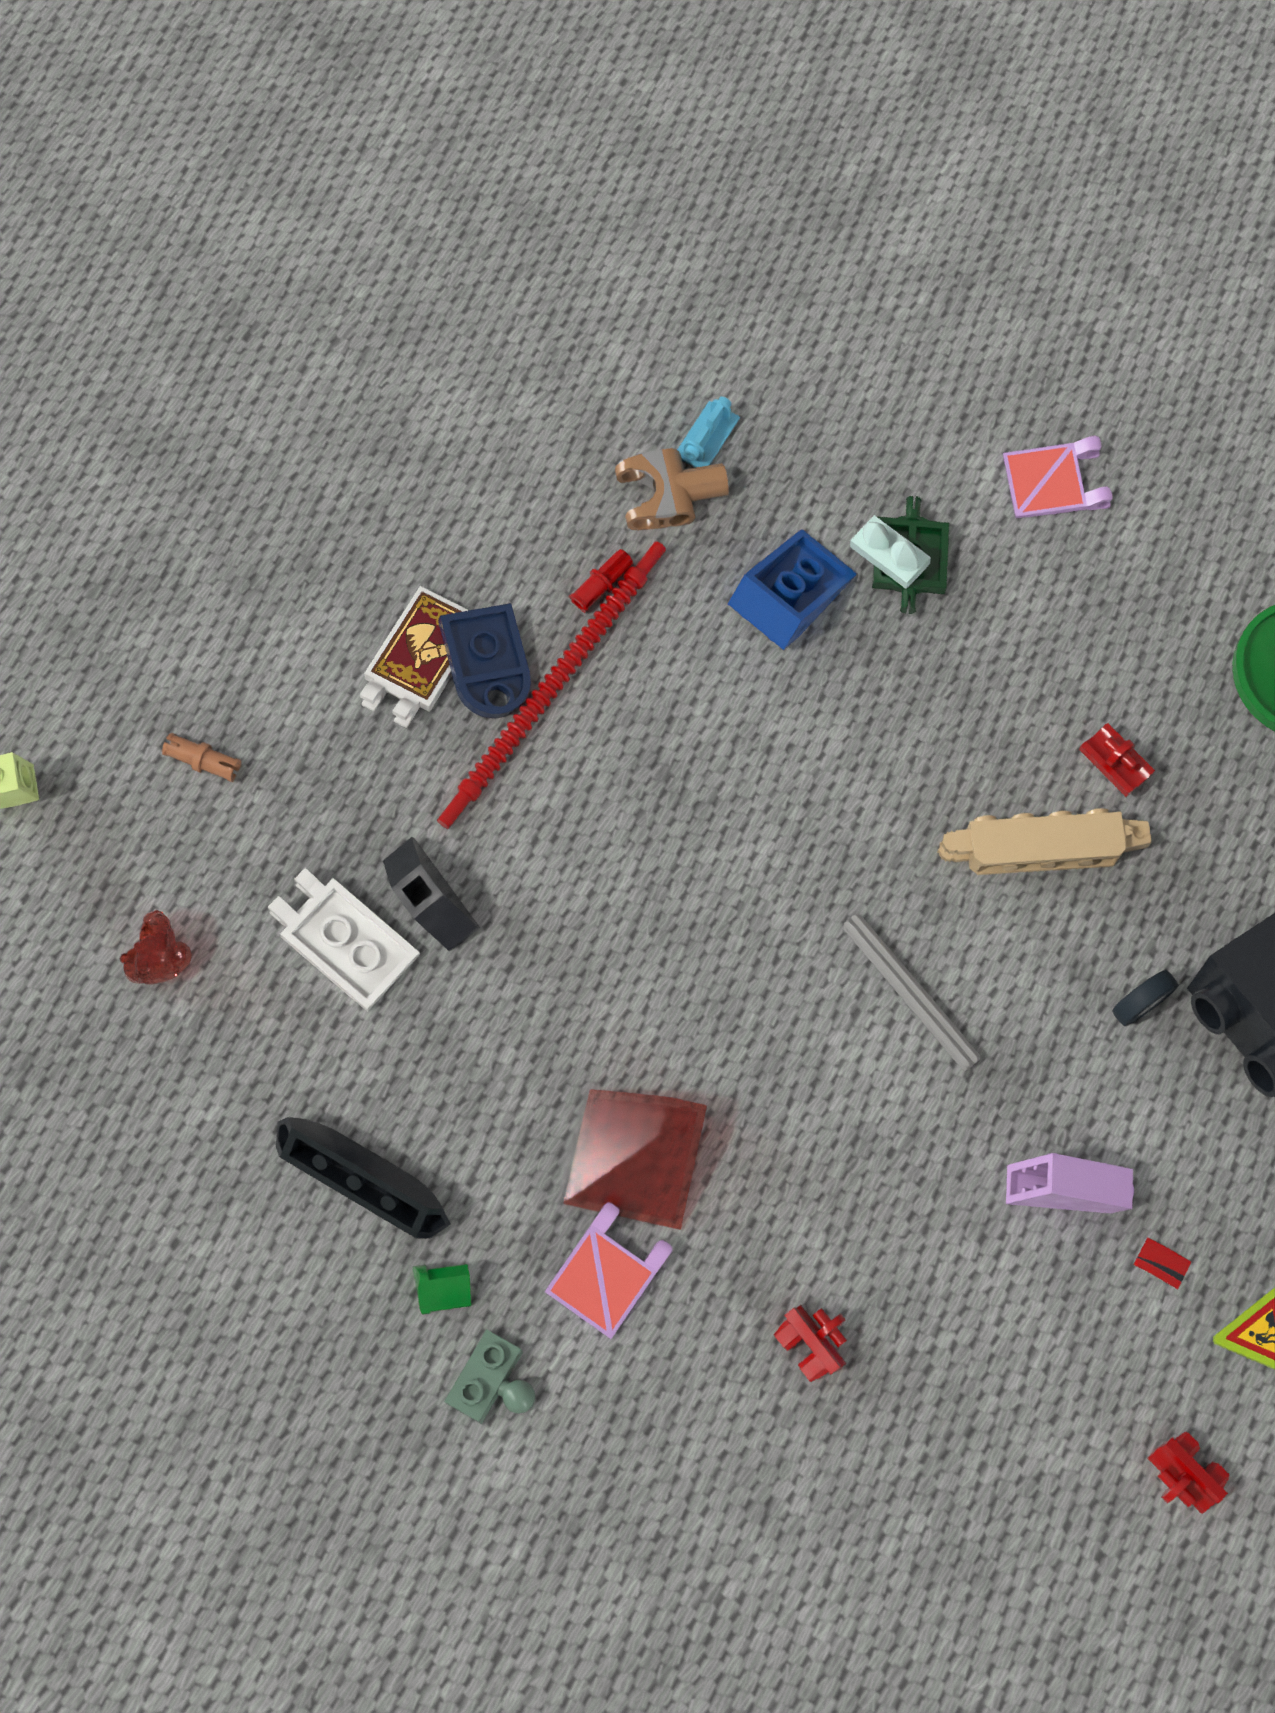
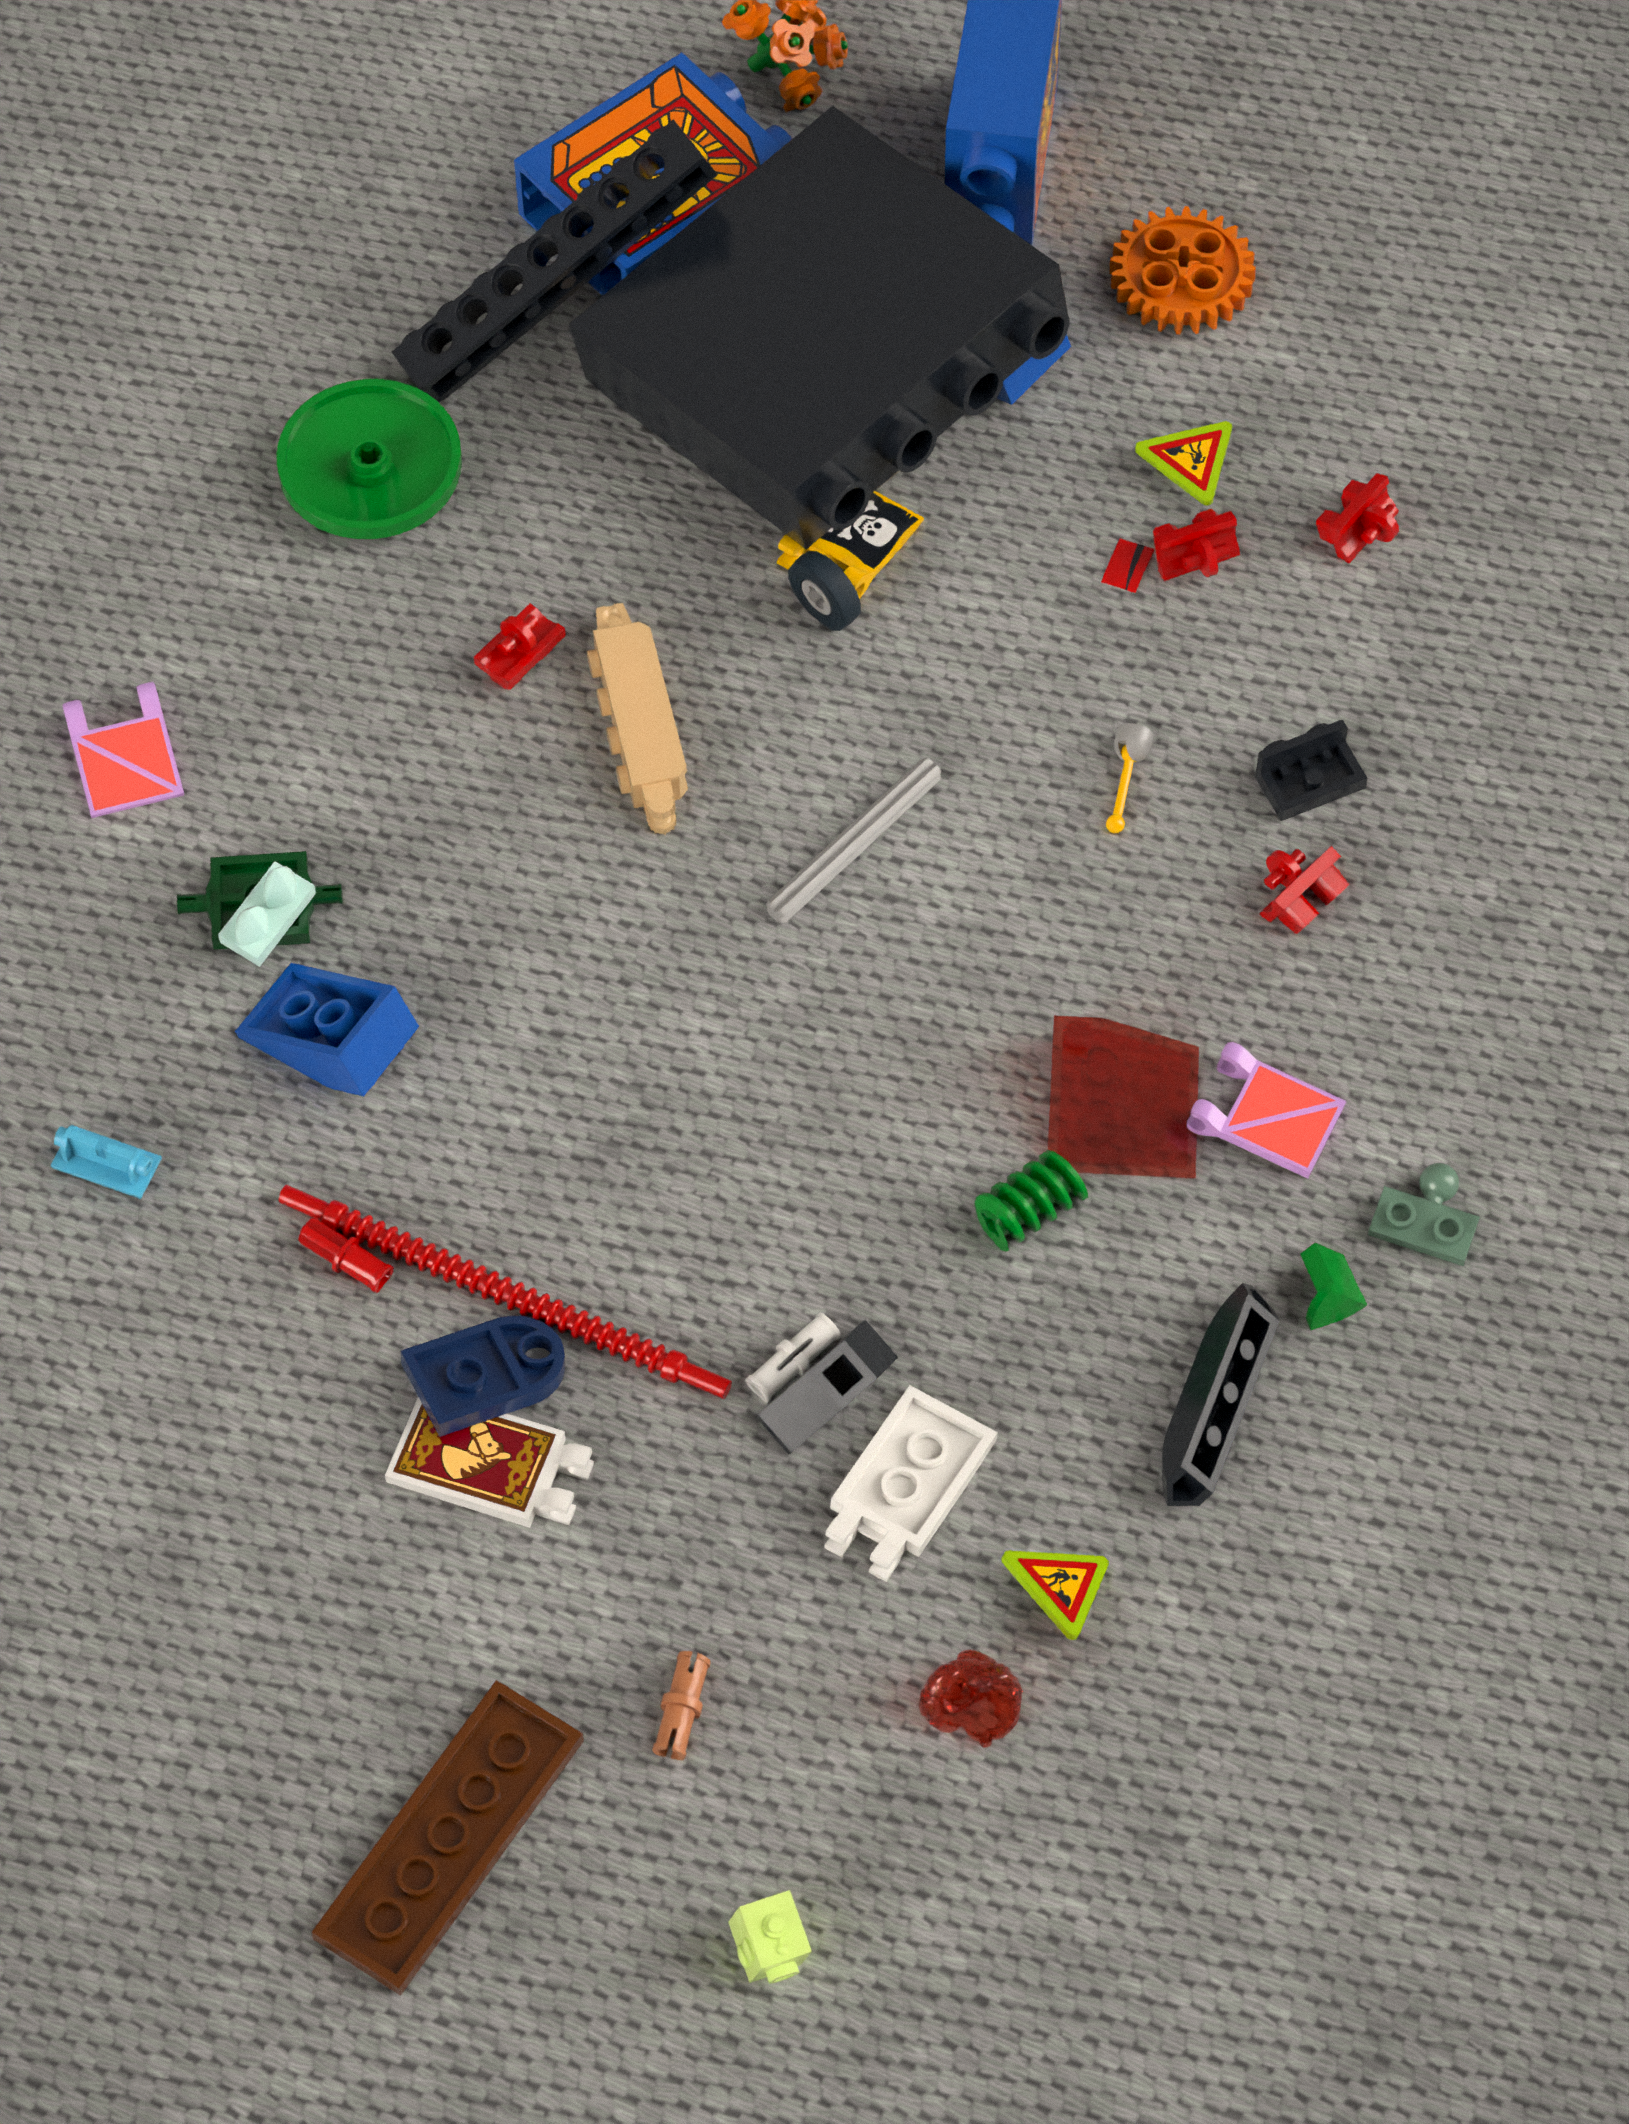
camera: 95 degrees left, 10 degrees down
(141, 595) = (447, 1837): none -> reddish brown plate
(229, 1030) = (1059, 1584): none -> piece
(472, 891) = (816, 1335): none -> white pin
(556, 1066) = (1026, 1196): none -> green piece
(673, 488) = (194, 1186): medium nougat connector -> none
(927, 1371) = (1309, 770): none -> black bracket
(971, 1227) = (1131, 745): none -> hinge
(1069, 1184) = (1064, 653): lavender slope -> none
(1169, 1322) = (1197, 545): none -> red hips
(1205, 1054) = (864, 545): none -> flag

